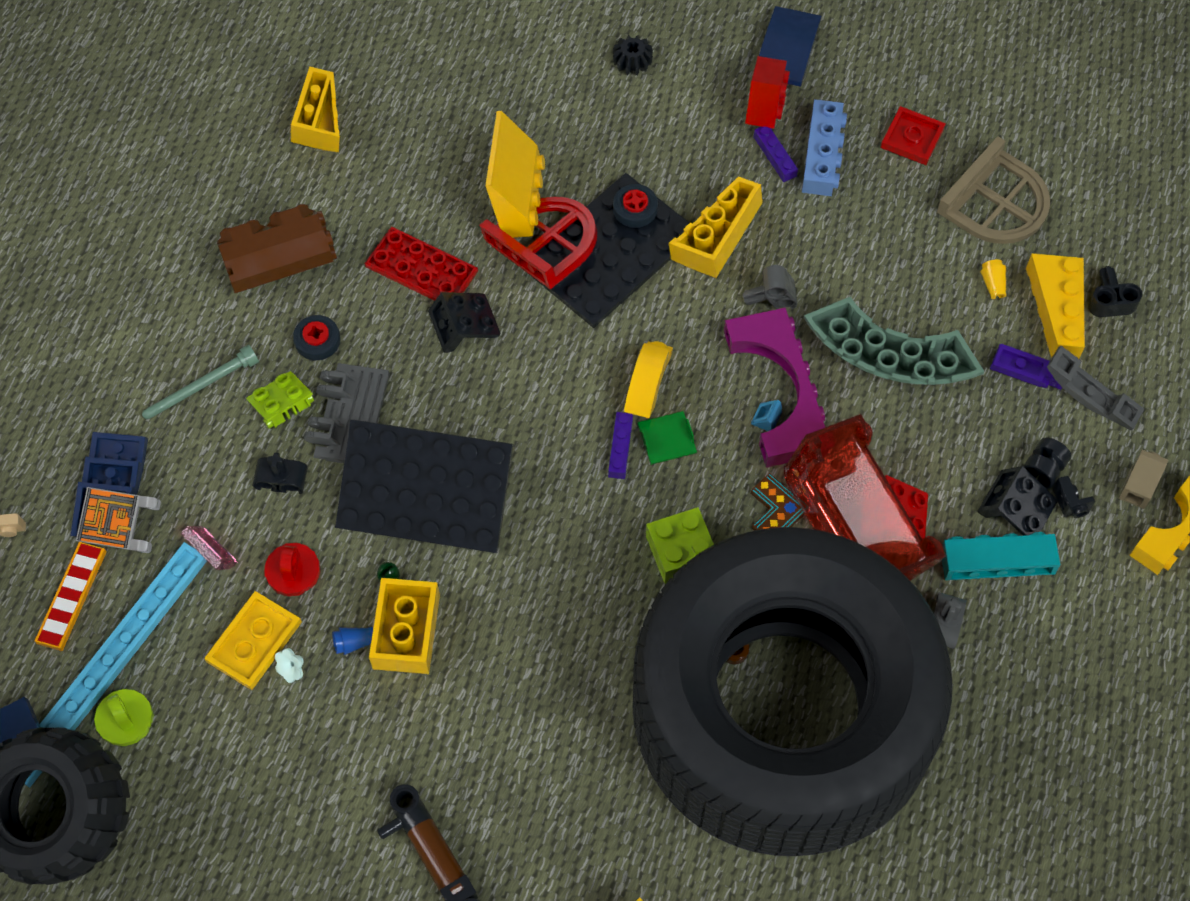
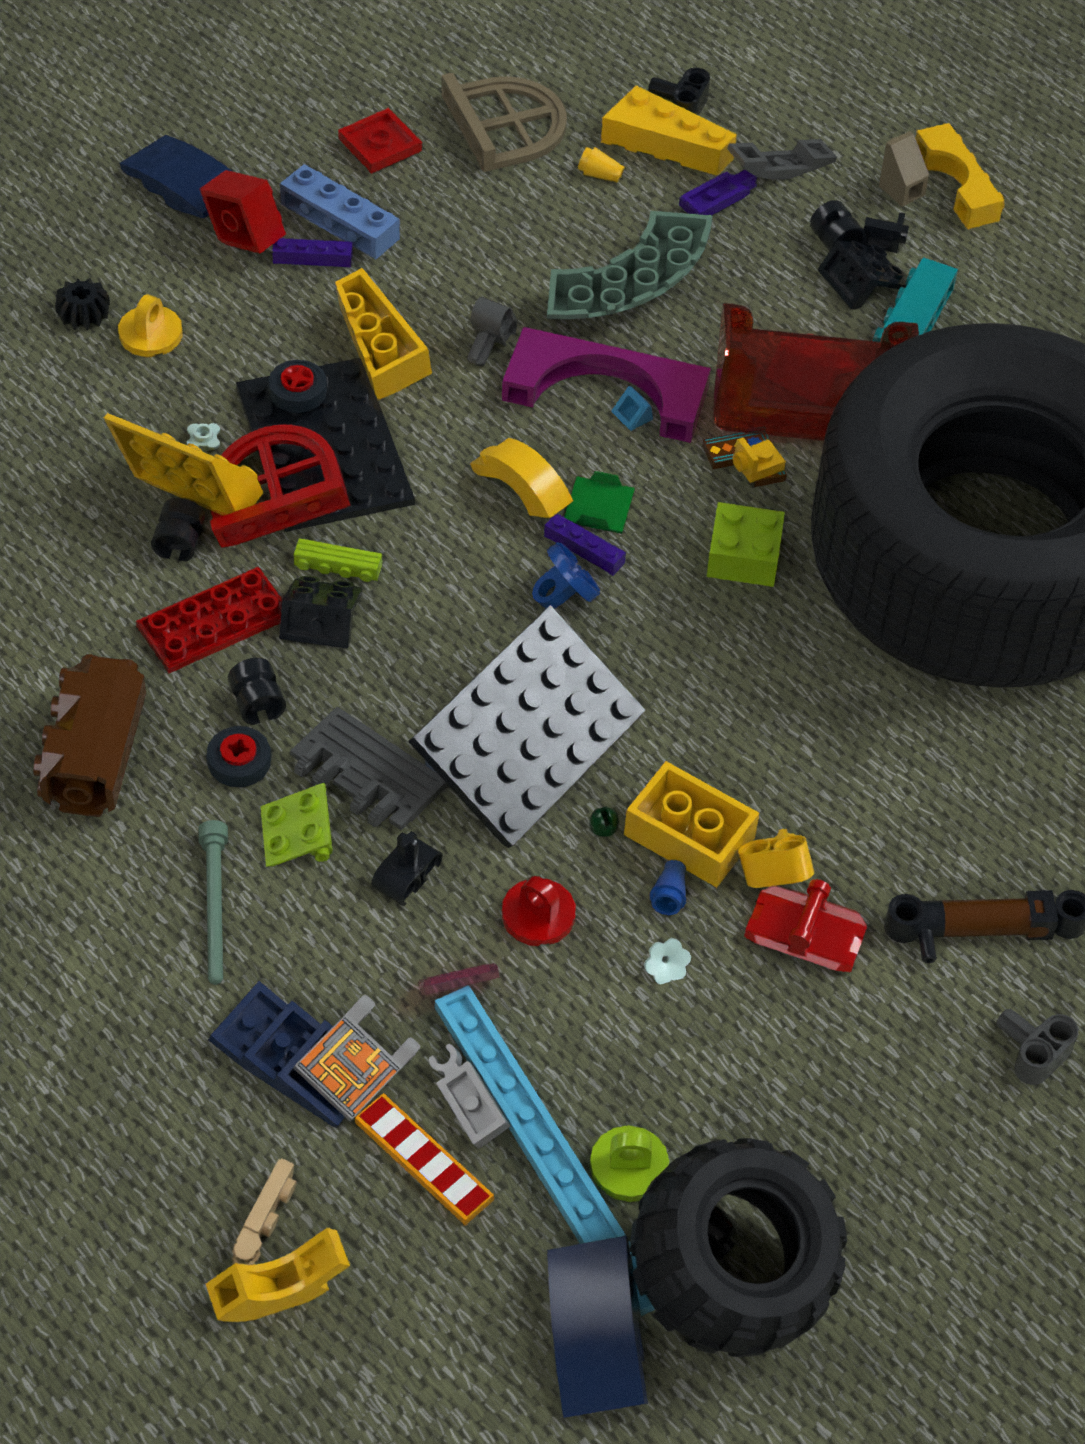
camera: 65 degrees left, 10 degrees down
(123, 597) = (469, 1099): none -> light grey plate
(253, 640) = (610, 986): yellow plate -> none
(365, 742) = (807, 926): none -> red shield
(371, 317) = (256, 690): none -> black wheel
(404, 694) = (776, 860): none -> yellow beam
(473, 208) = (178, 528): none -> black wheel
(512, 310) = (338, 560): none -> lime piece
(567, 186) = (206, 442): none -> light aqua plate
(577, 448) = (566, 578): none -> blue tile
(640, 102) = (150, 328): none -> yellow tile
(766, 514) = (757, 460): none -> yellow bracket

